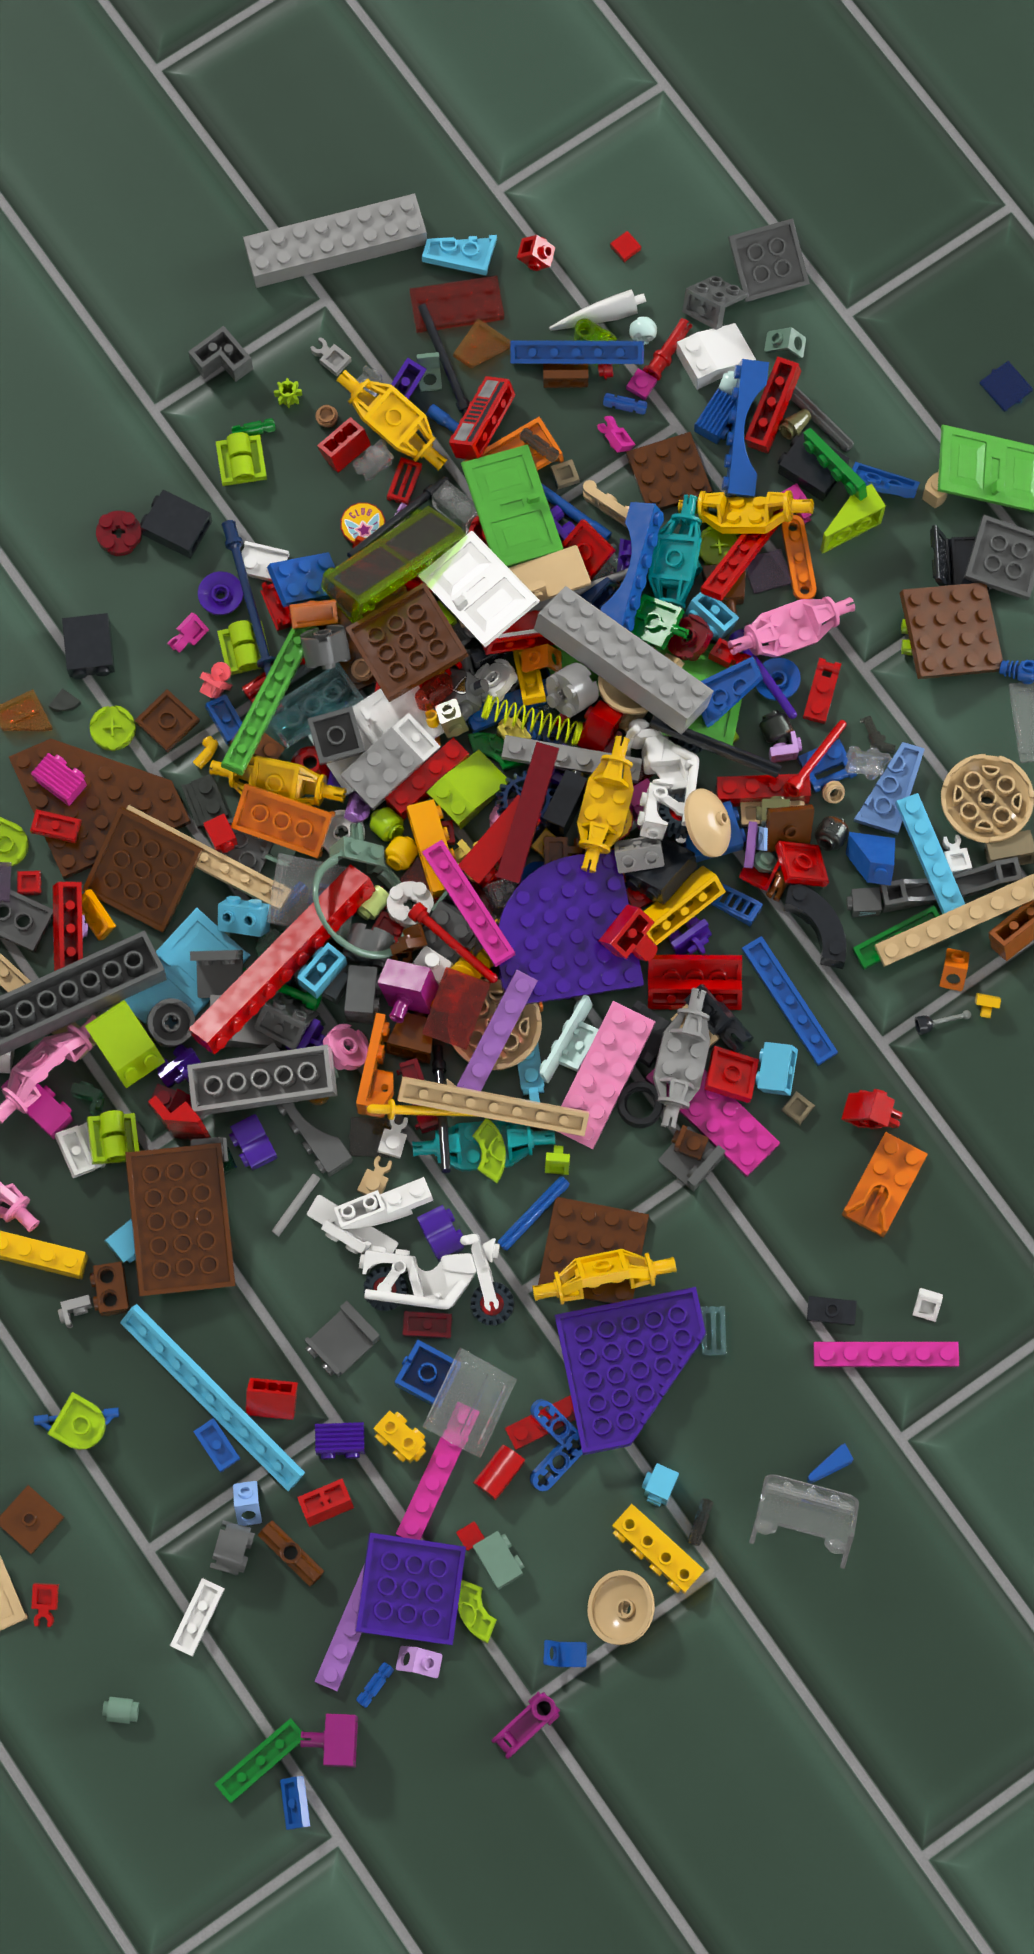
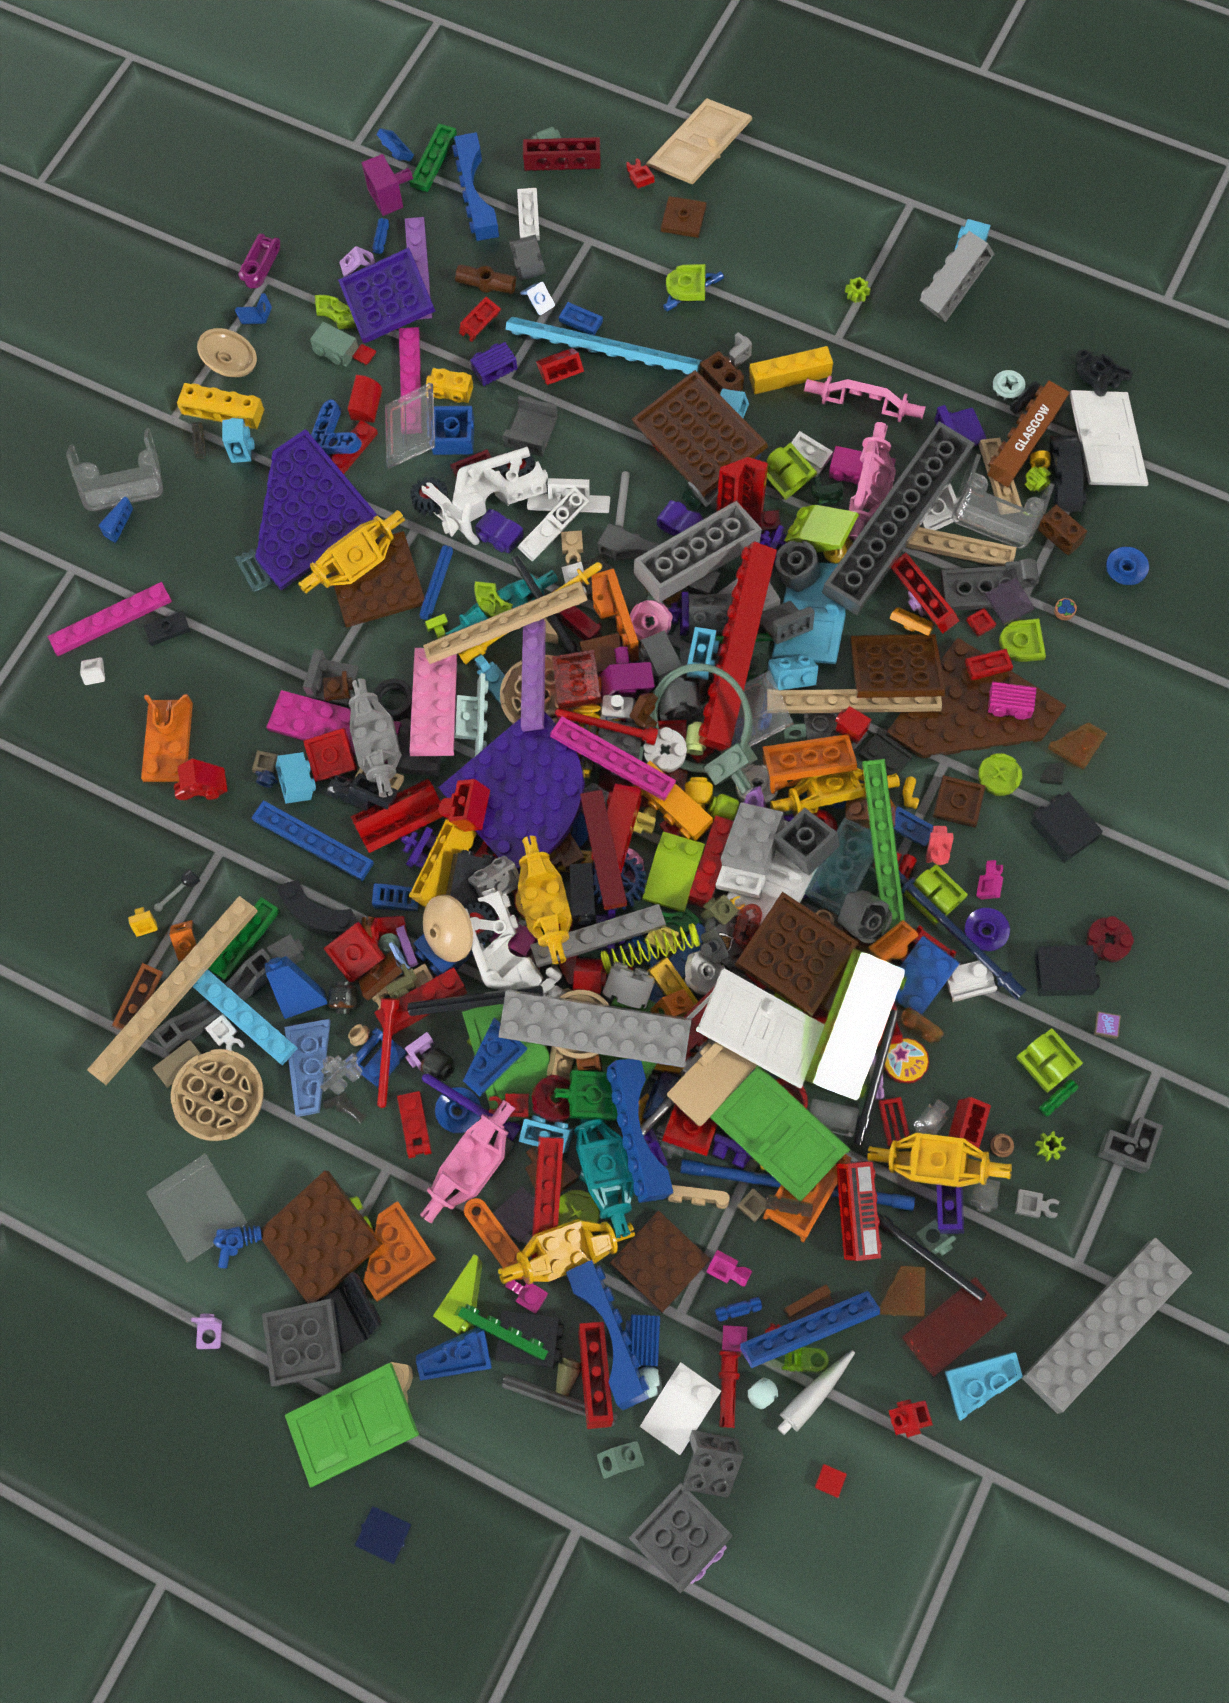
camera: 155 degrees right, 5 degrees down
(116, 1672) = (562, 153): none -> dark red brick
(171, 465) = (1107, 1025): none -> tile
(219, 1739) = (483, 216): none -> blue arch
(335, 550) = (929, 1030): none -> clear orange plate
(805, 1086) = (266, 778): none -> dark blue plate
(882, 587) = (399, 1256): none -> orange plate

